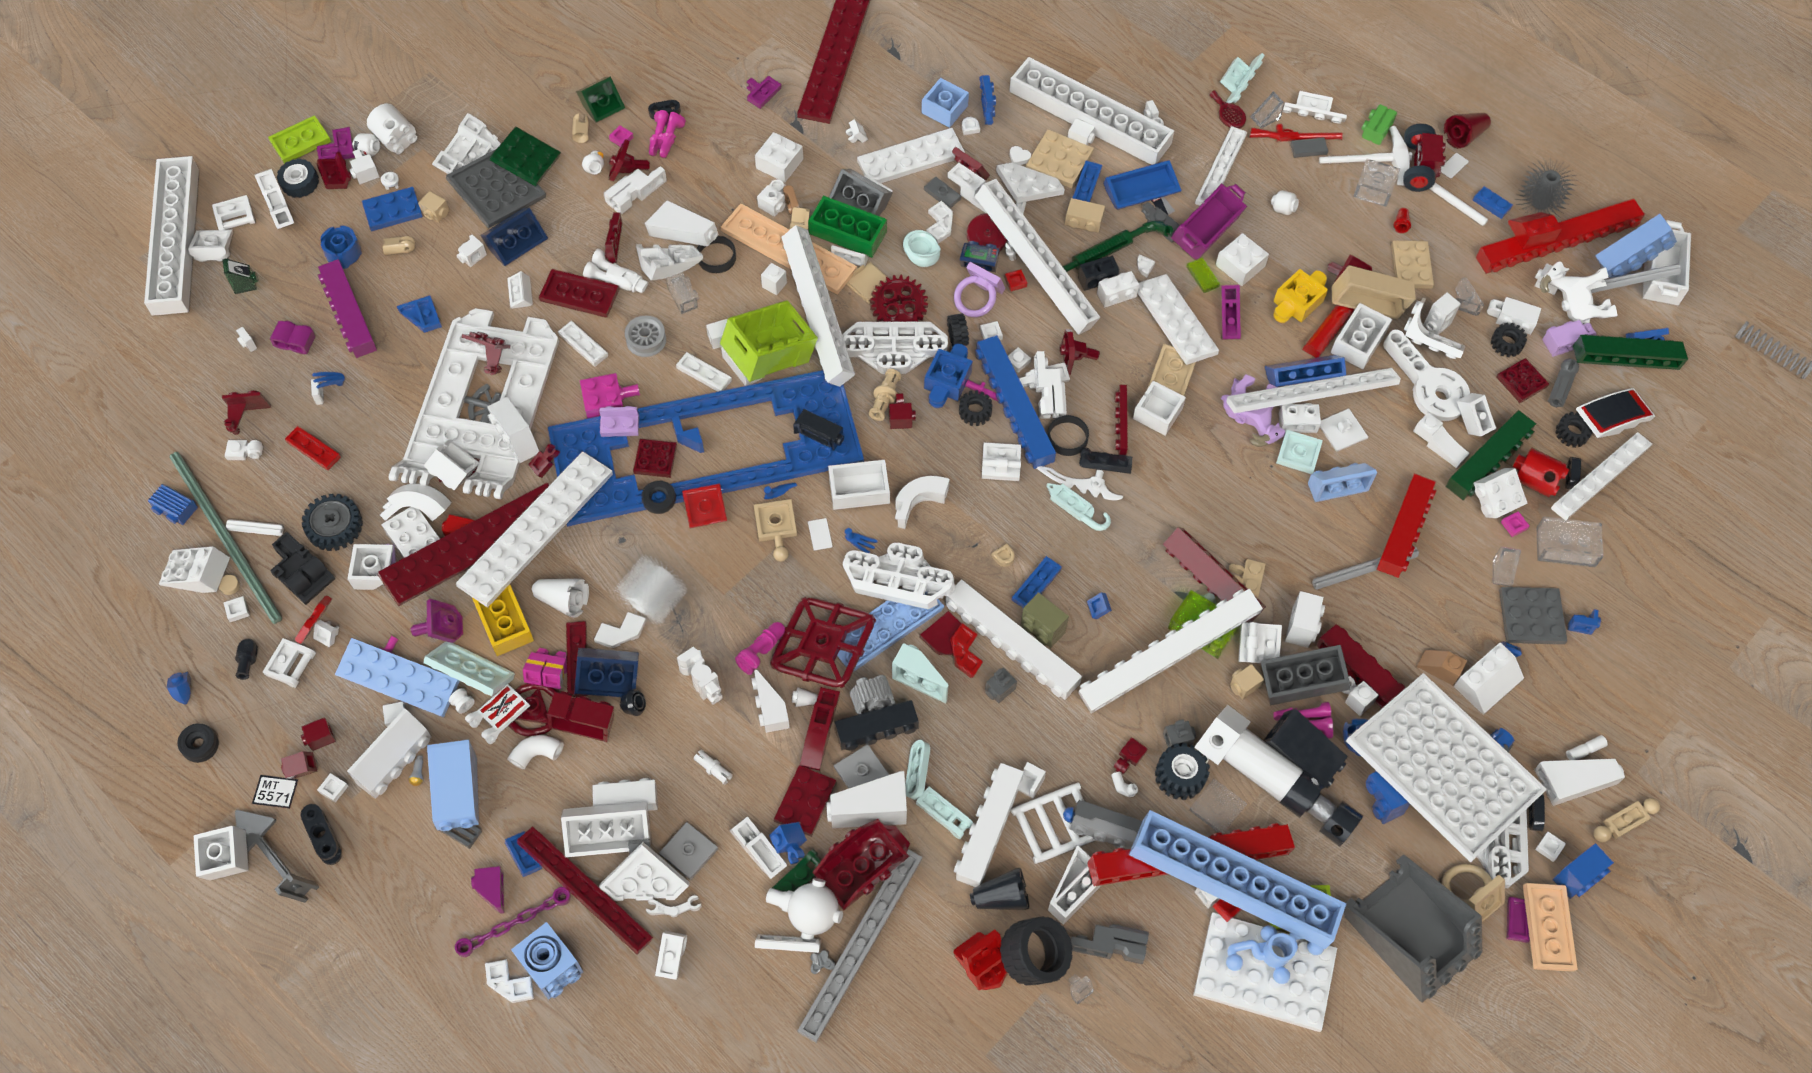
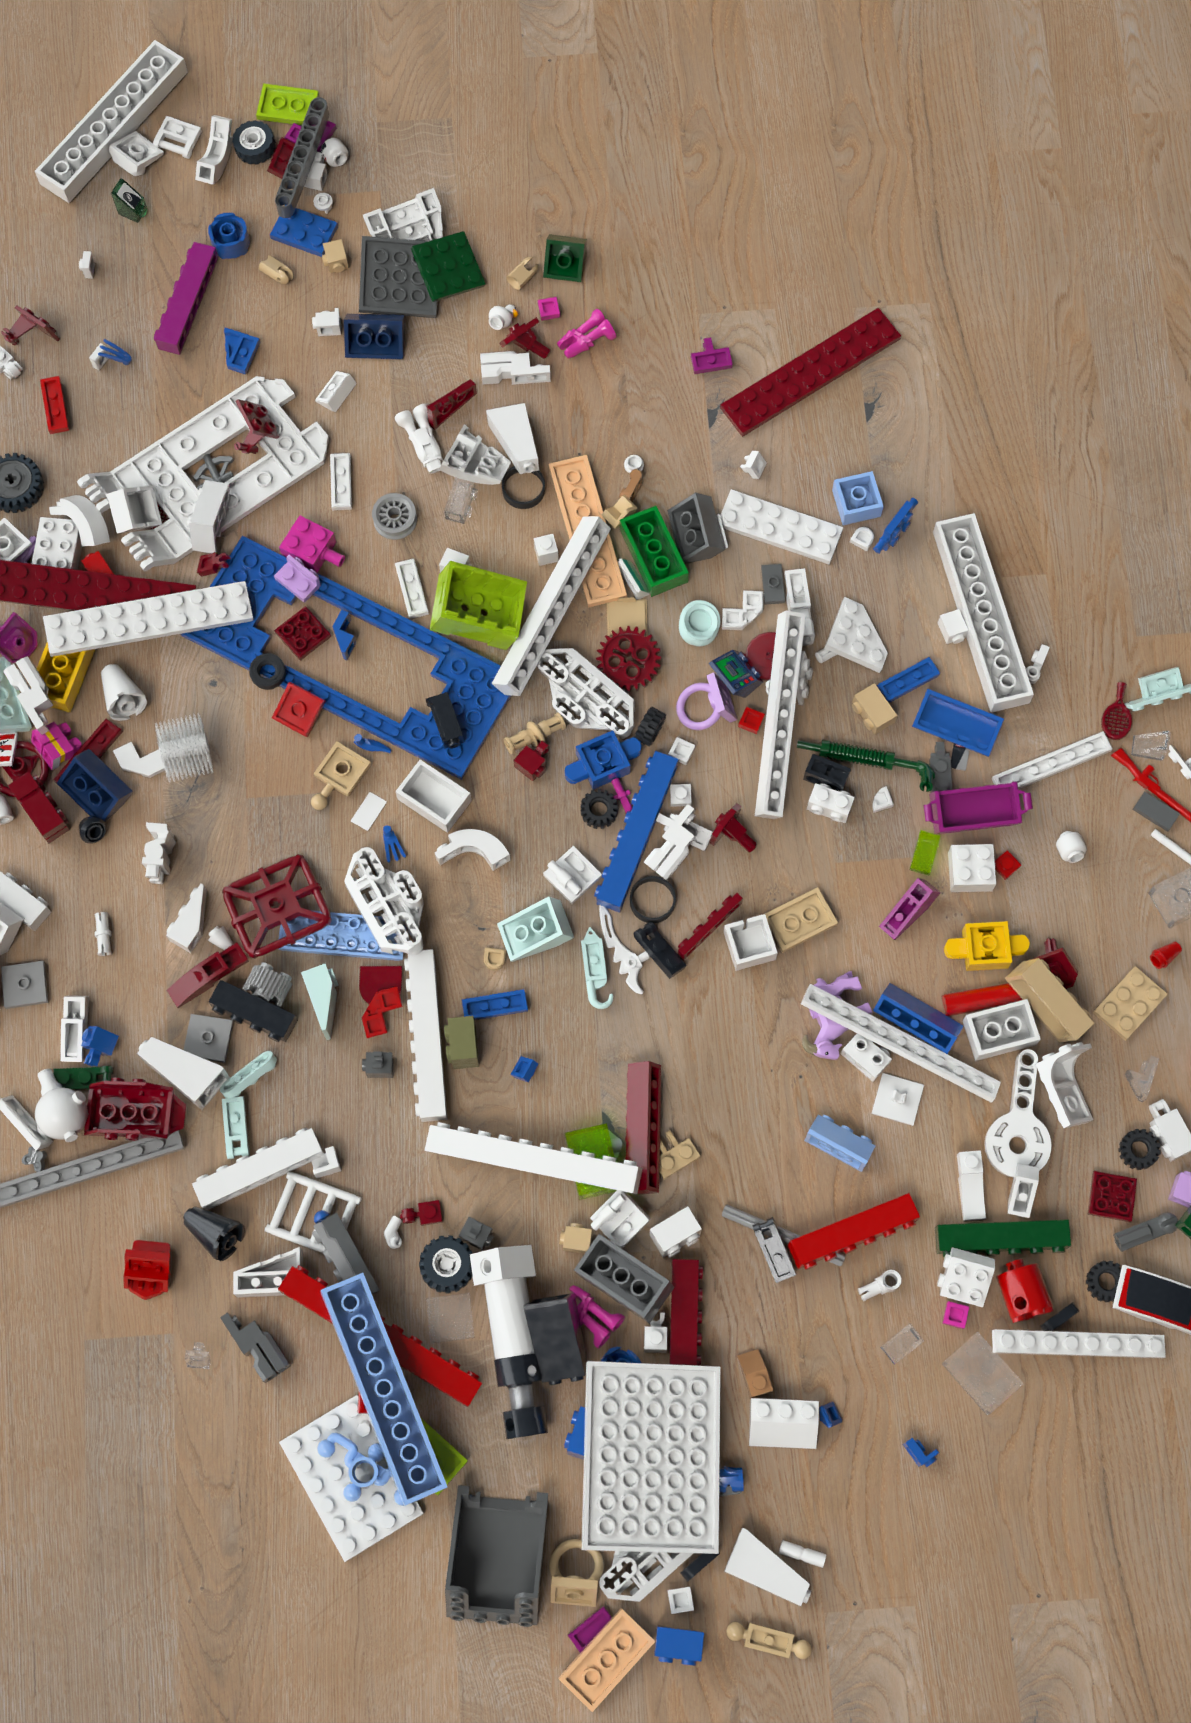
camera: 45 degrees right, 10 degrees up
(292, 337) = (123, 291): magenta brick -> none
(349, 158) = (312, 131): none -> dark grey beam
(391, 128) = (364, 152): white cylinder -> none
(497, 636) = (32, 699): none -> white plate
(579, 293) = (378, 432): dark red plate -> none
(664, 105) = (611, 309): black beam -> none
(747, 658) = (233, 866): dark pink piece -> none
(771, 201) = (615, 473): white brick -> none
(779, 157) = (661, 436): white brick -> none
(805, 799) = (143, 1020): dark red plate -> none
(970, 163) = (818, 577): dark red tile -> none
(1013, 514) = (535, 929): none -> light aqua slope
(1019, 156) = (876, 603): white tile -> none
(1056, 945) = (186, 1324): black tyre -> none
(1060, 157) = (911, 634): tan plate -> none
(1176, 319) = (853, 874): white plate -> none
(1260, 241) = (1006, 865): none -> red plate
(1299, 451) = (834, 1085): light aqua plate -> none
(1372, 579) = (774, 1250): none -> plate
(1442, 314) = (1096, 1073): white brick -> none
(1454, 544) = (879, 1285): none -> white pin
(1533, 615) = (884, 1405): dark grey plate -> none

